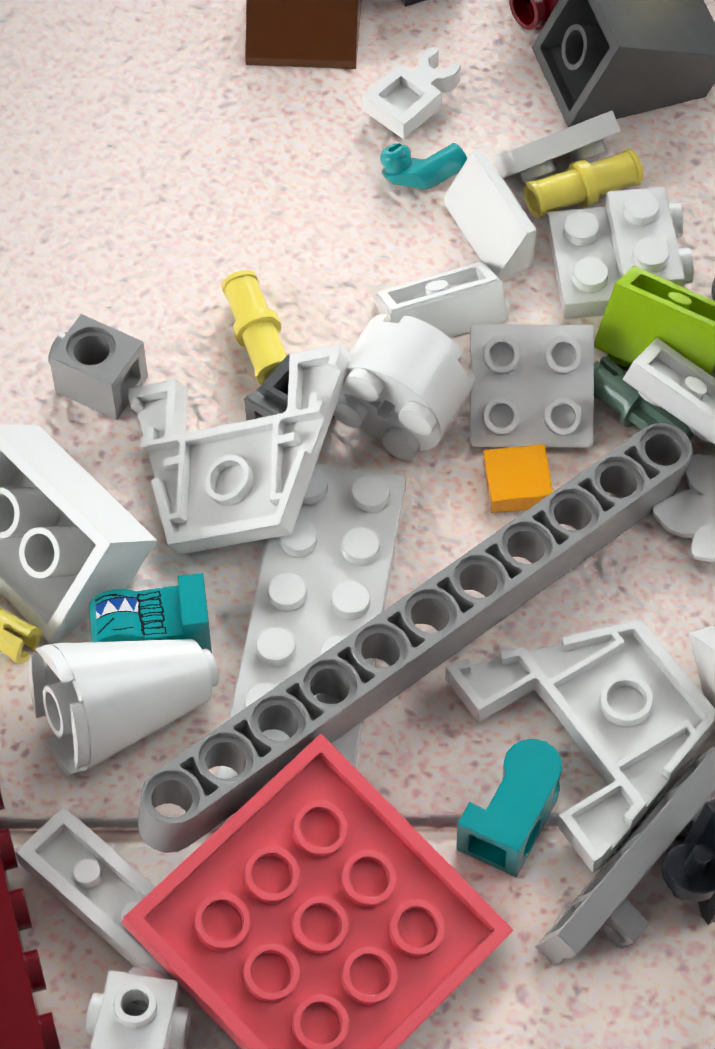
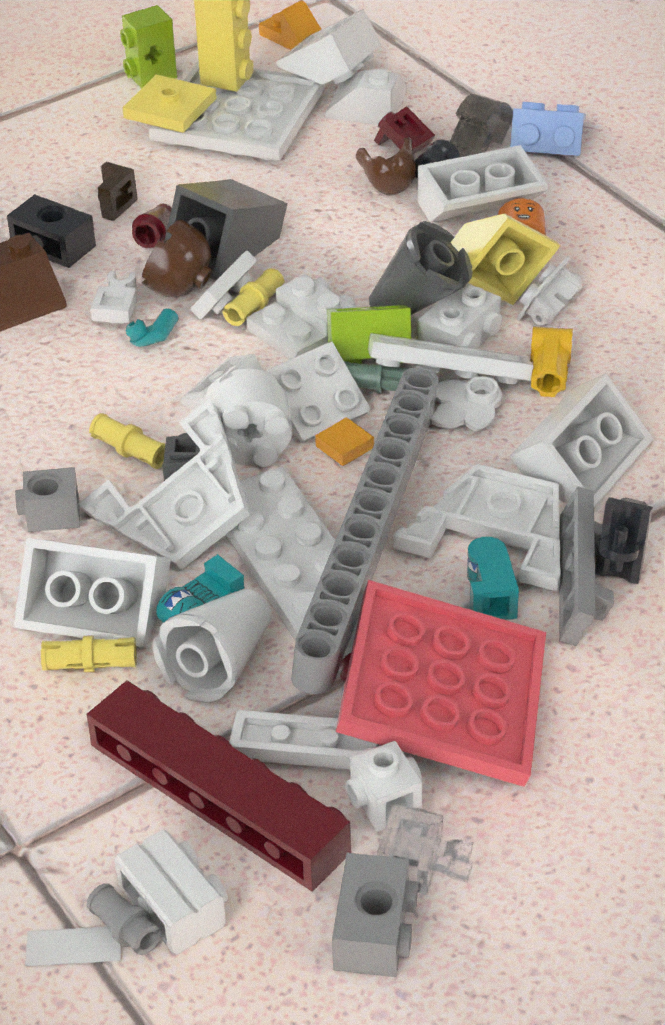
camera: 35 degrees left, 15 degrees down
(491, 217) = (216, 330): white slope -> none
(522, 81) = (179, 262): none -> reddish brown cylinder

